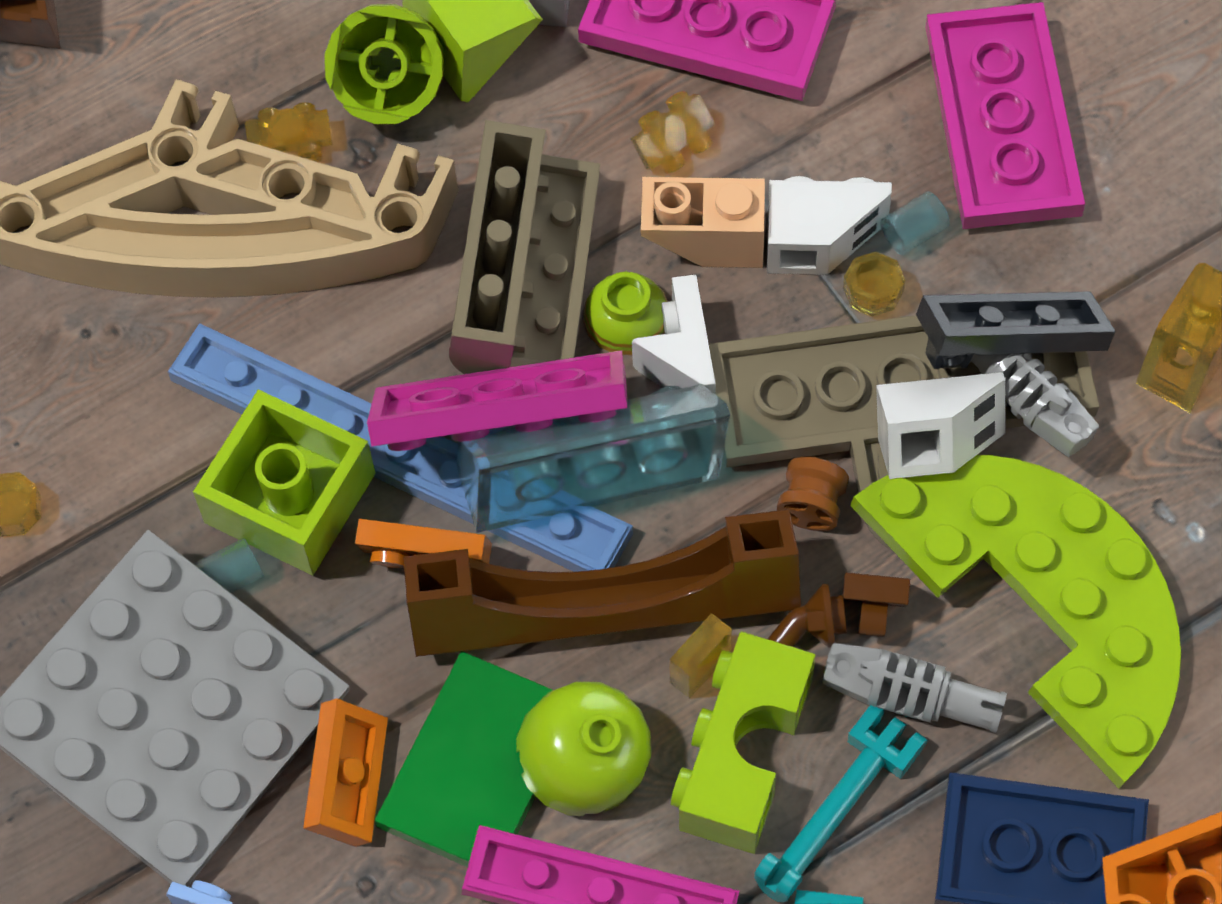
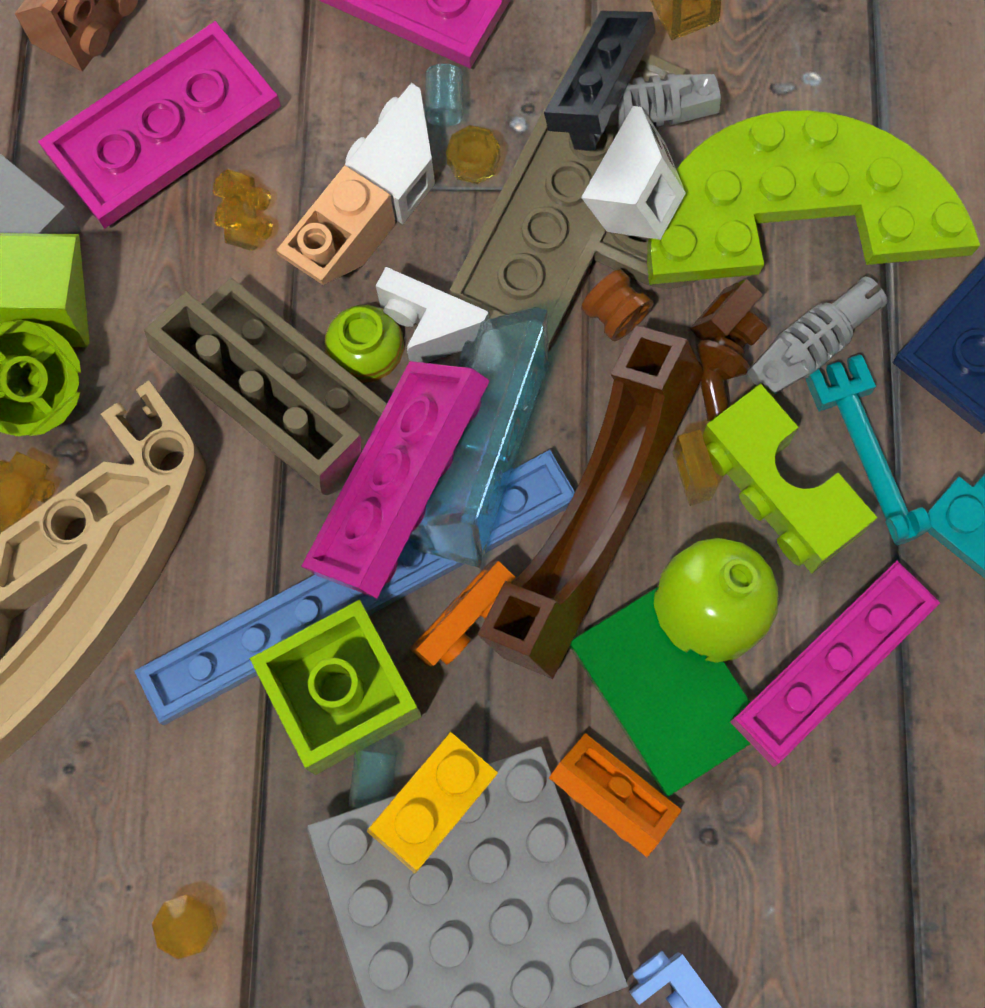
camera: 55 degrees left, 10 degrees up
(231, 613) = (432, 802): none -> yellow plate

